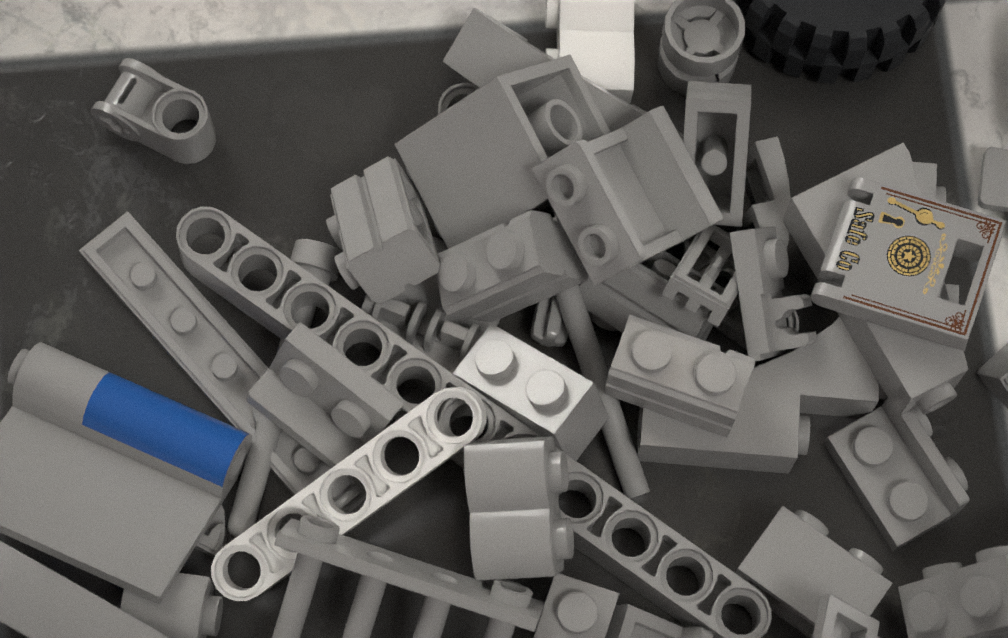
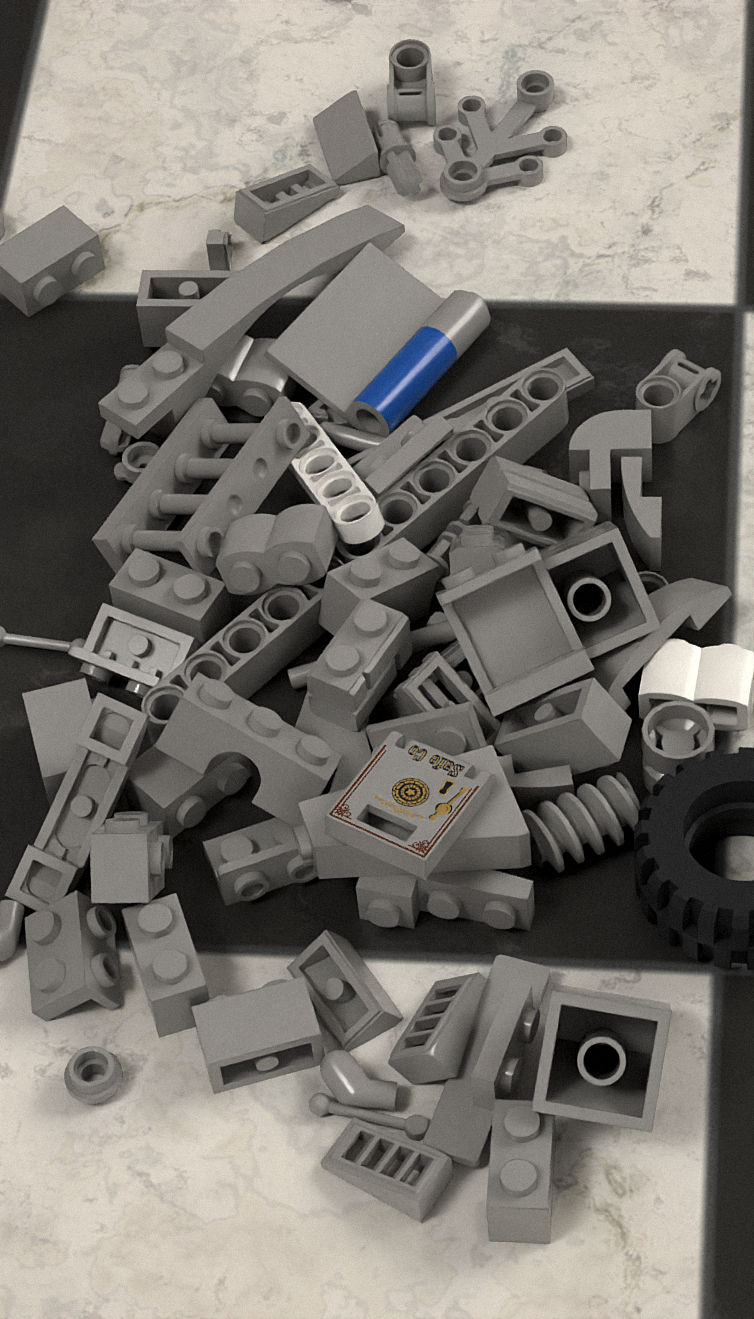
camera: 110 degrees right, 20 degrees down
(261, 181) = (598, 450): none -> light grey brick
(371, 120) = (641, 514): none -> light grey slope
(804, 129) = (582, 821): none -> light grey piece
(811, 513) = (217, 721): none -> light grey arch

